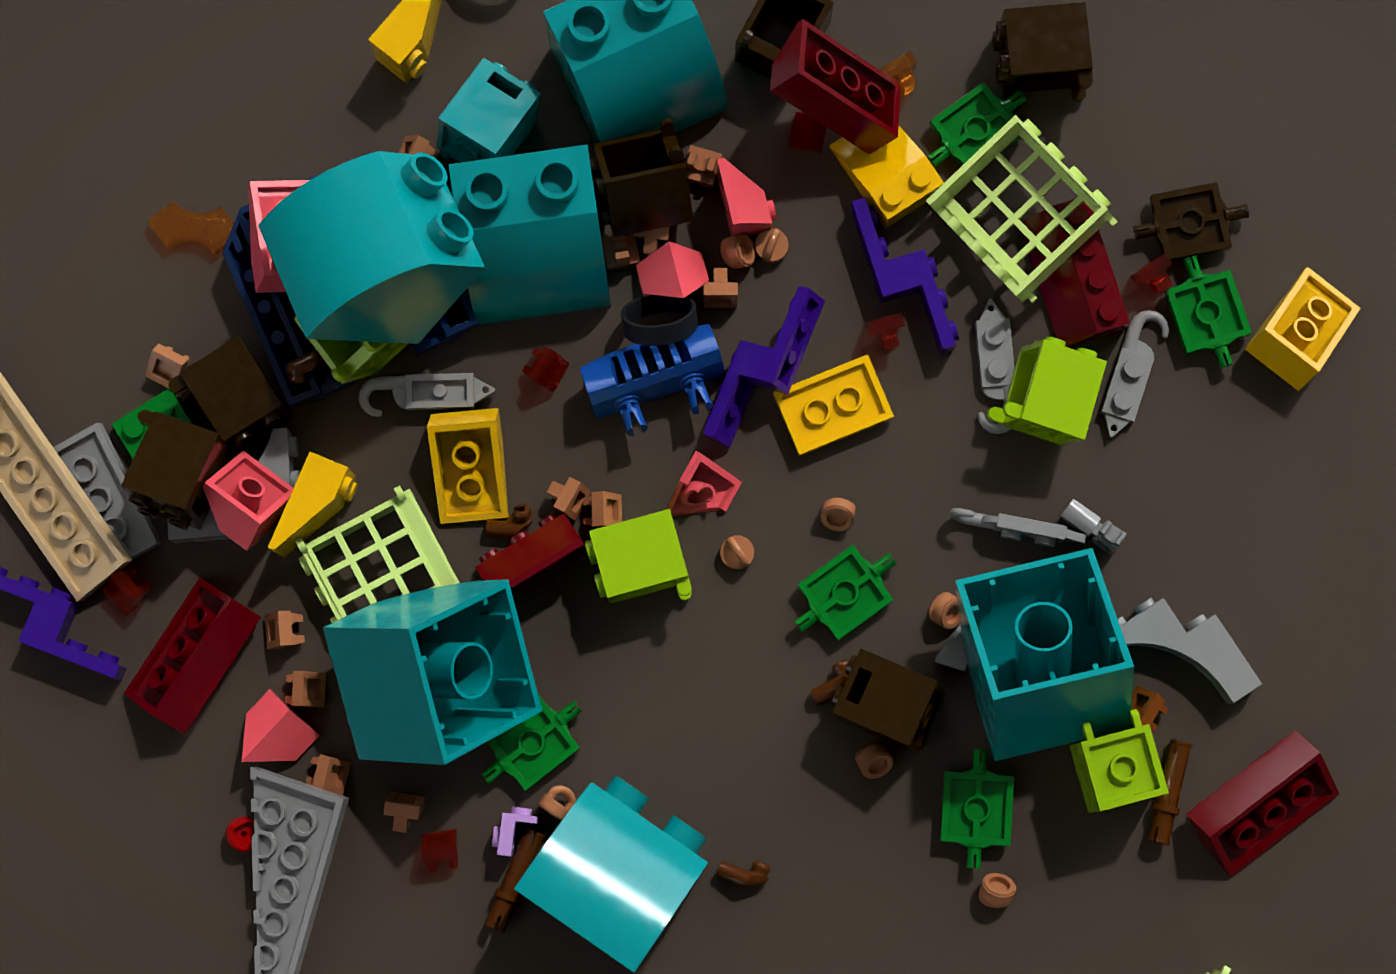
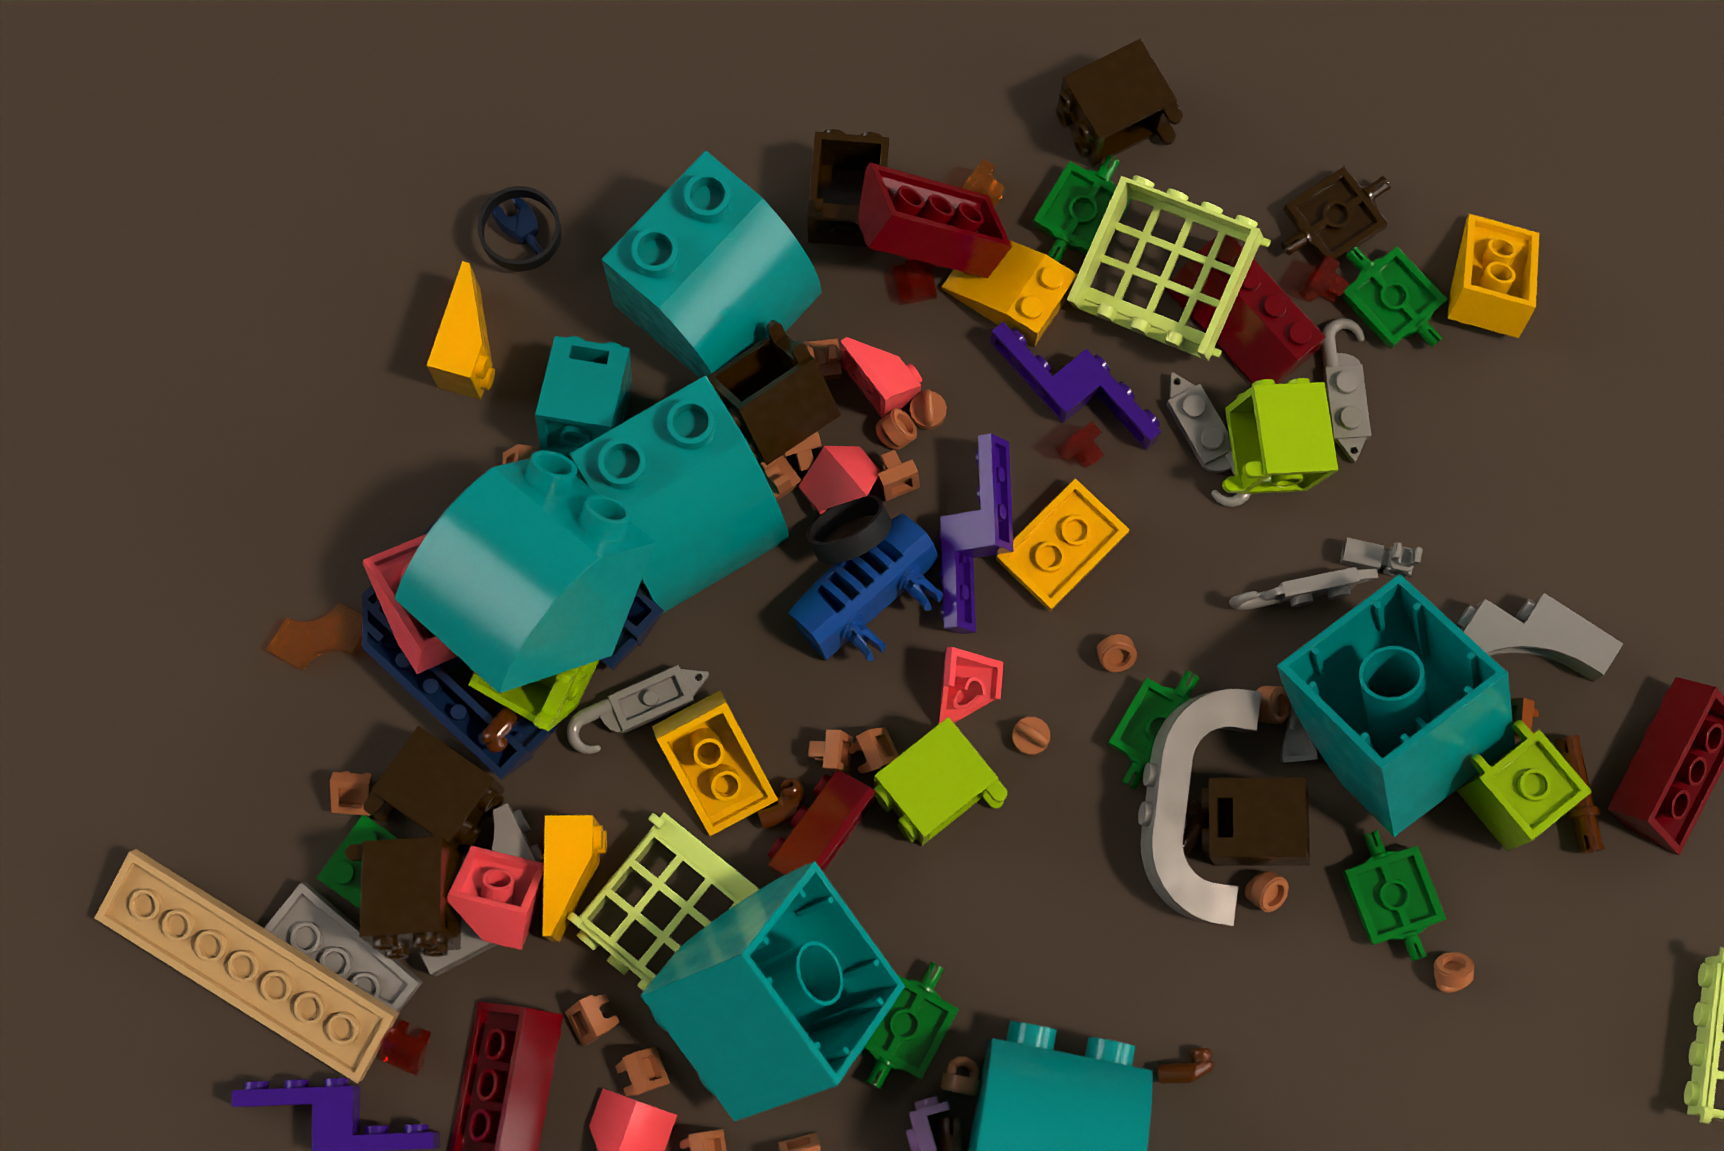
camera: 25 degrees left, 5 degrees down
(547, 368) = (753, 629): clear red tile -> none
(823, 648) = (1167, 799): none -> light grey arch

